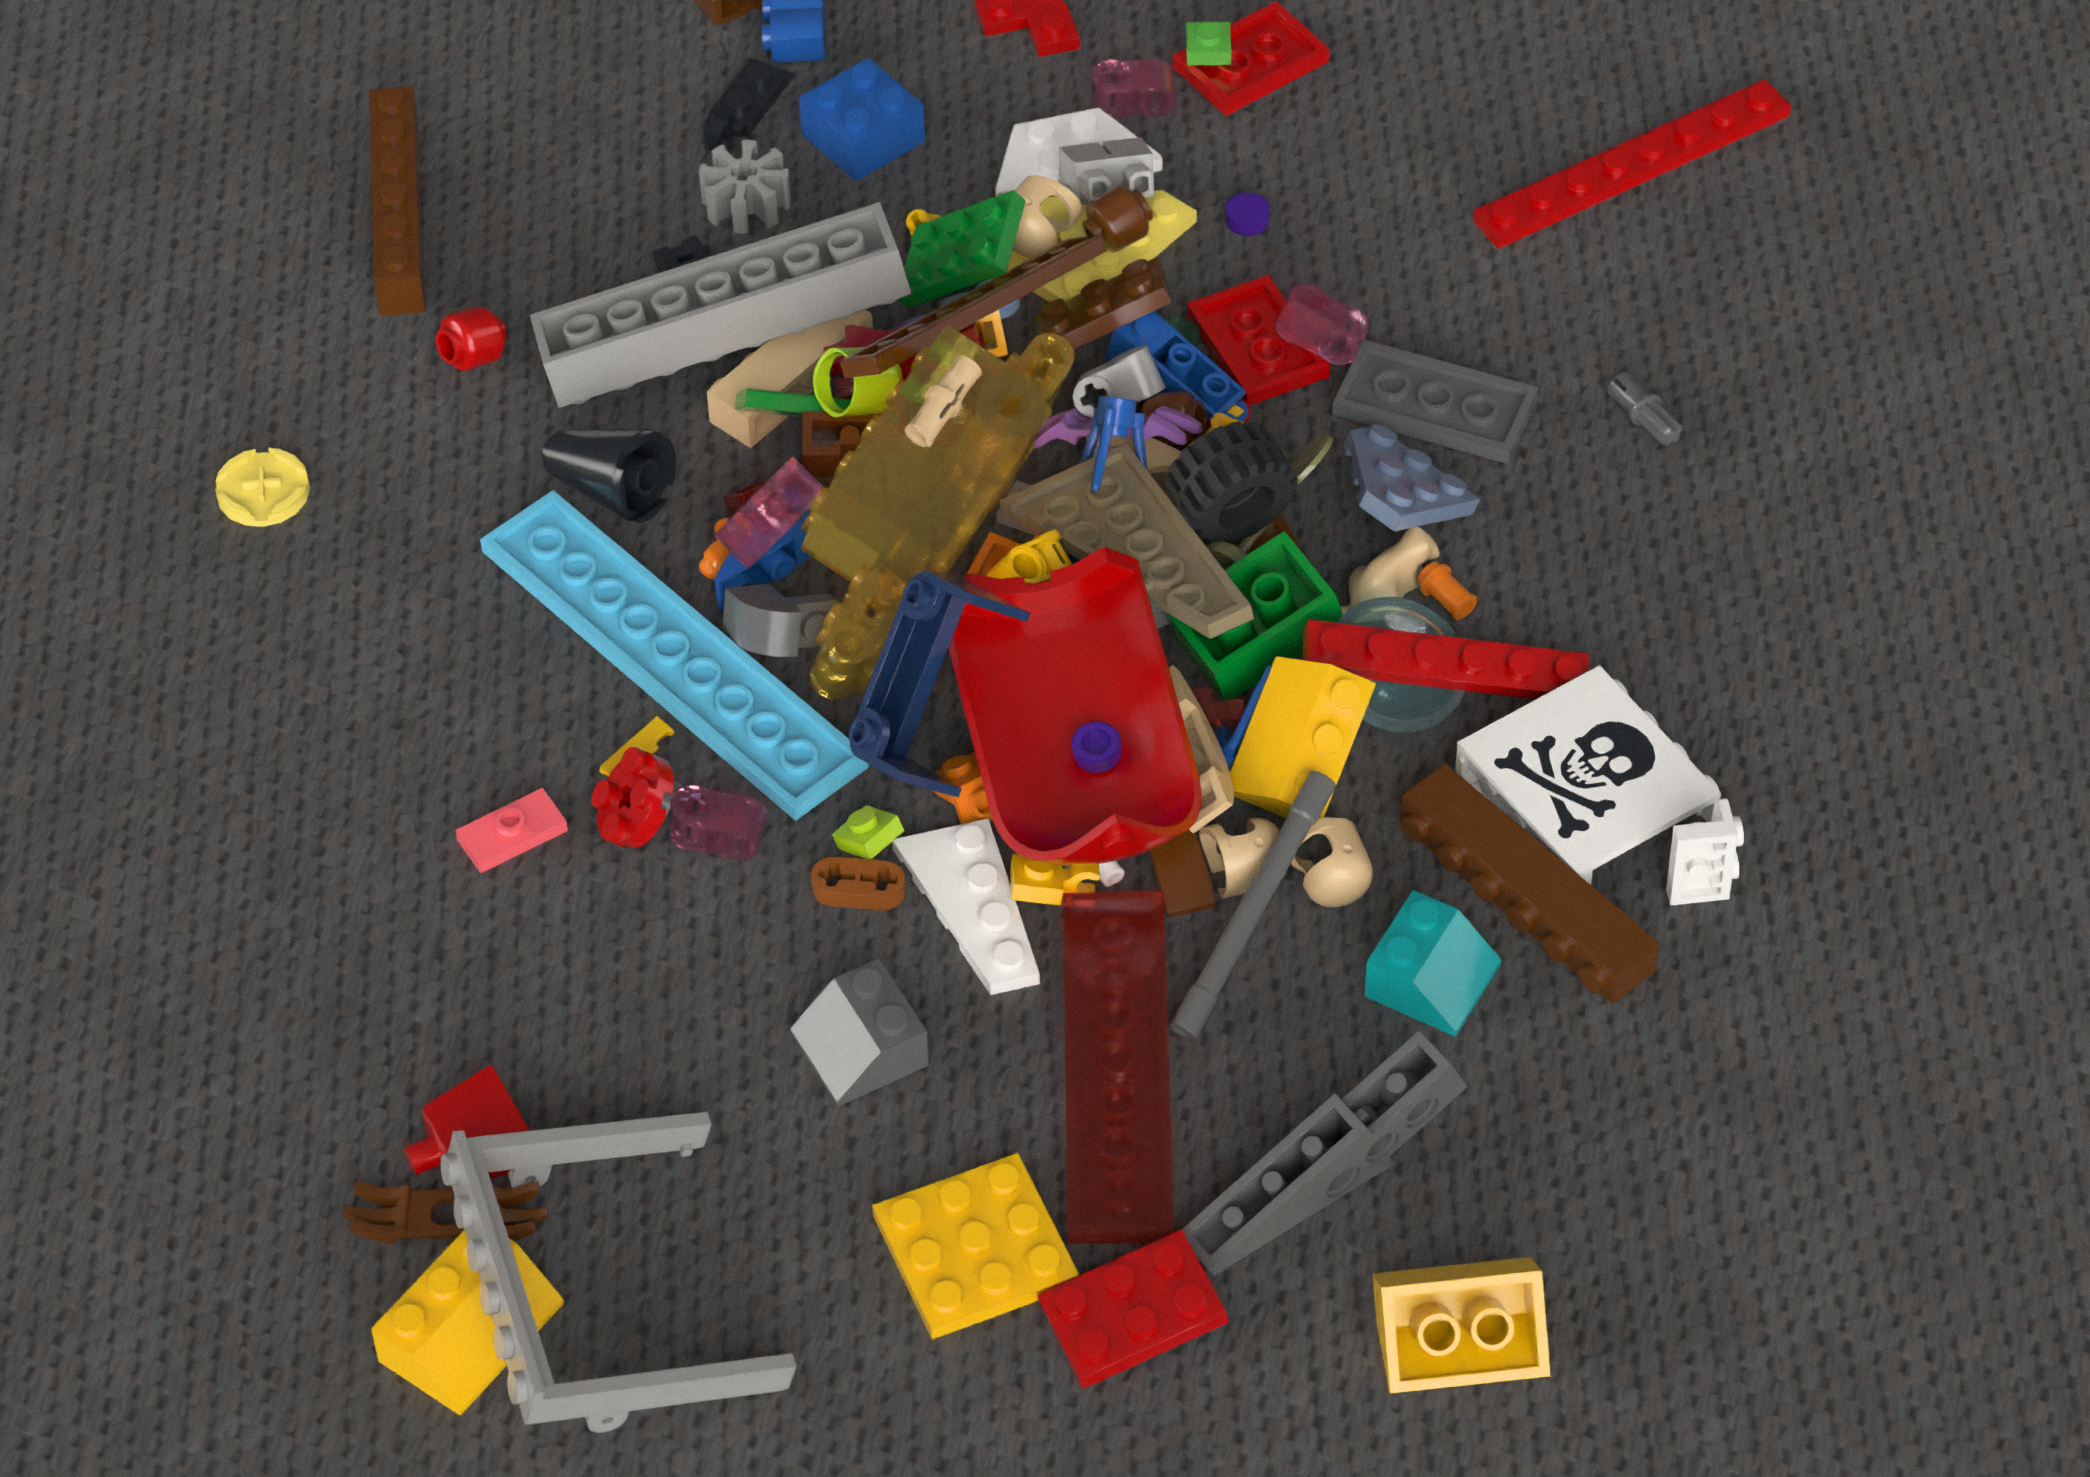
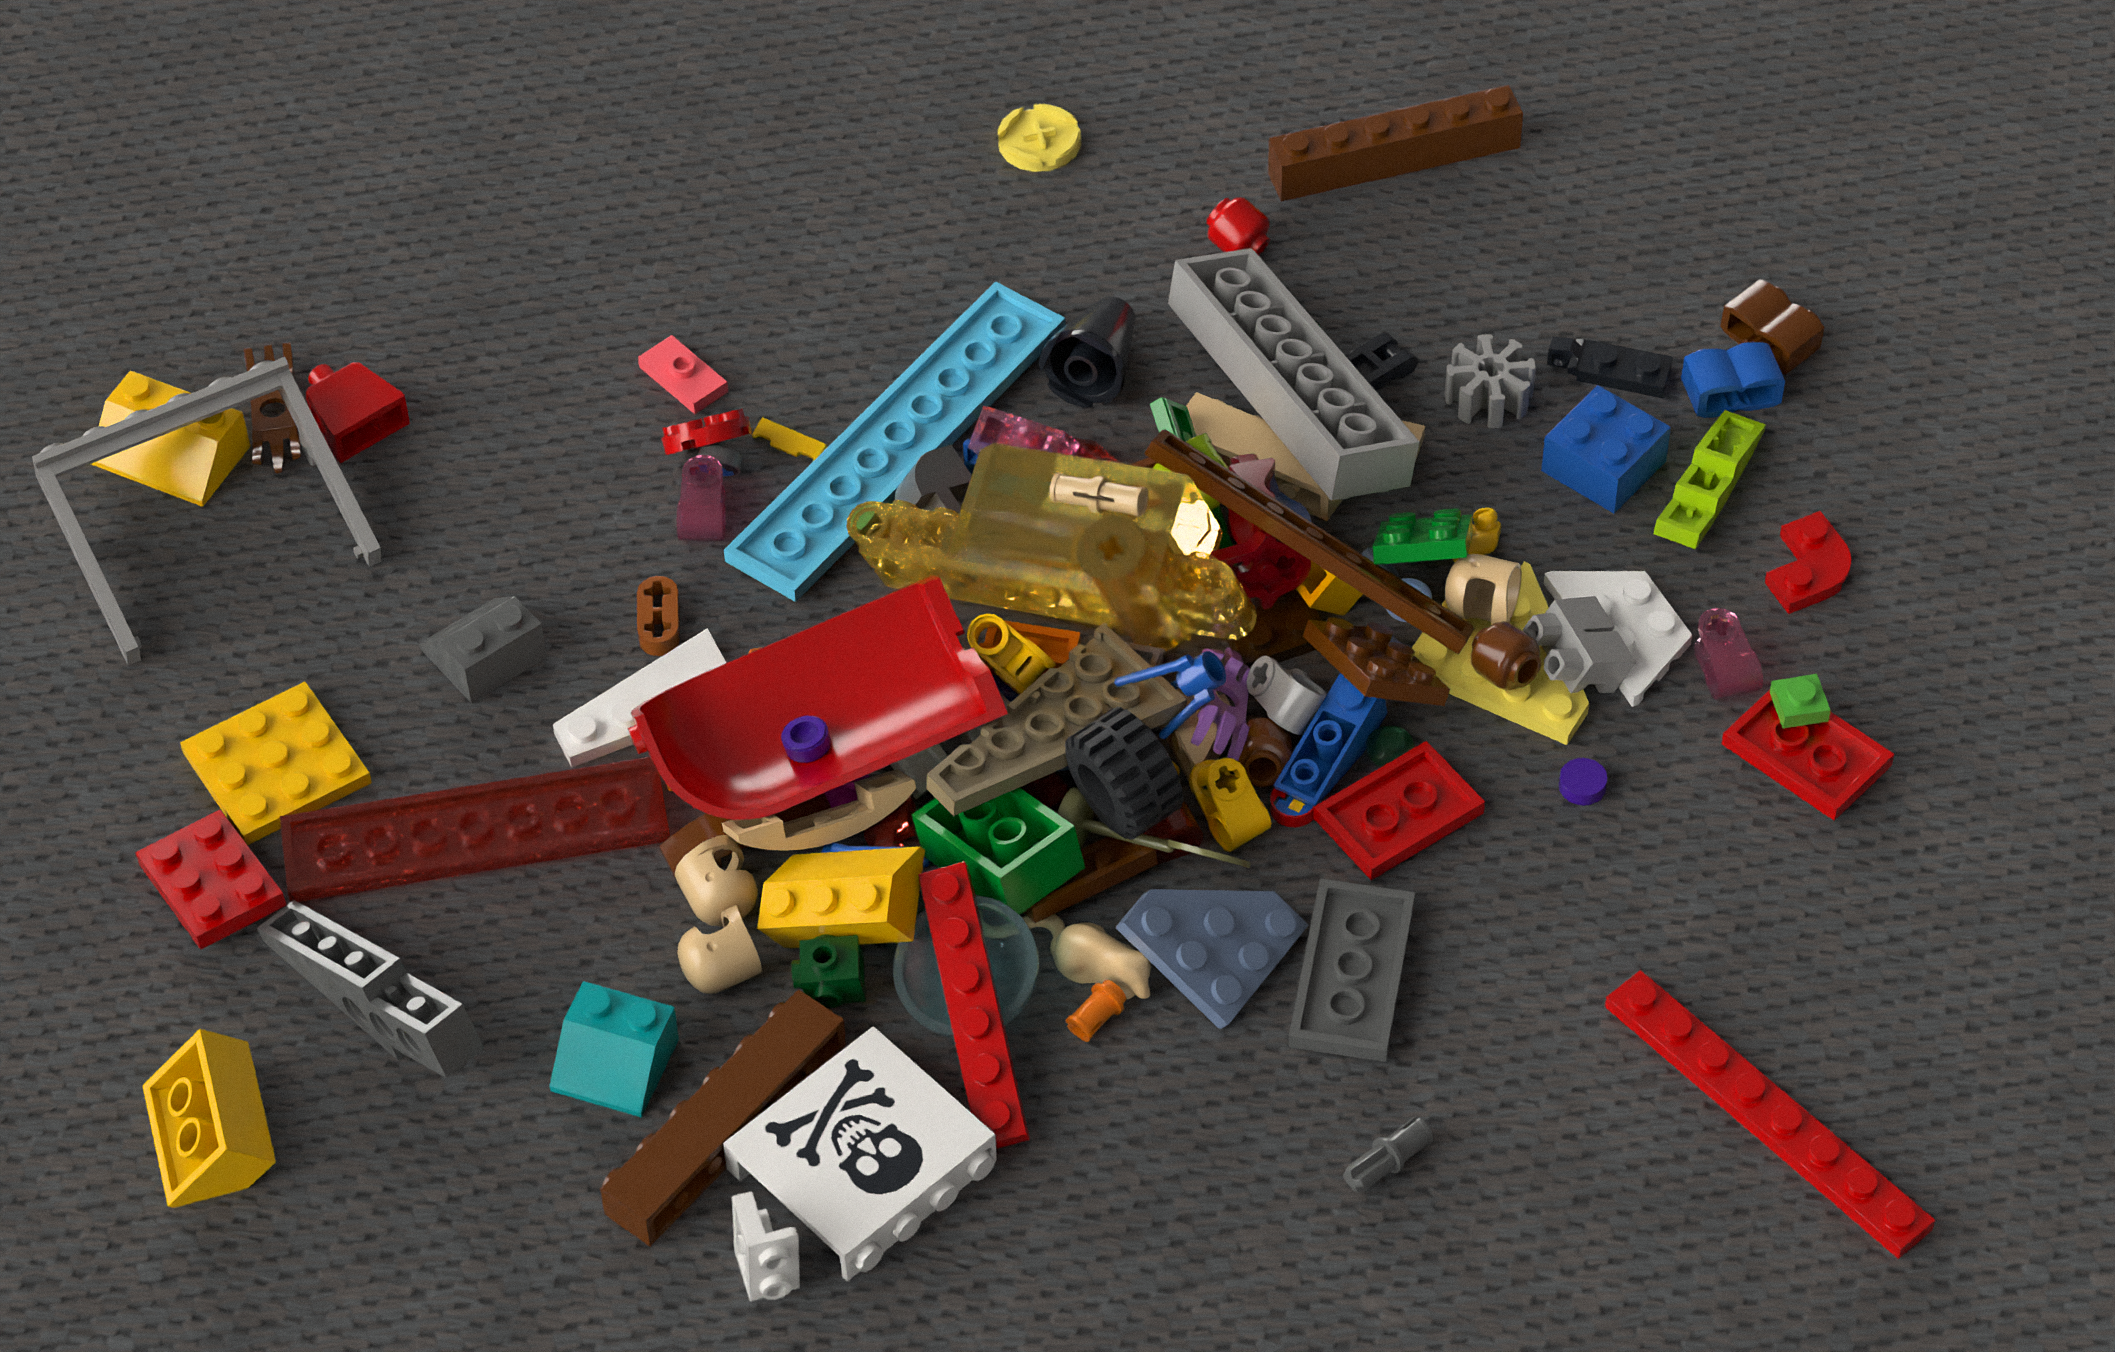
camera: 80 degrees right, 0 degrees up
(867, 832) = (712, 609): lime plate -> none
(909, 670) = (824, 577): dark blue windscreen -> none
(913, 64) = (1709, 479): none -> lime slope
(1203, 994) = (735, 898): dark grey piece -> none
(1319, 322) = (1406, 853): clear pink piece -> none
(1375, 774) = (831, 970): none -> dark green brick

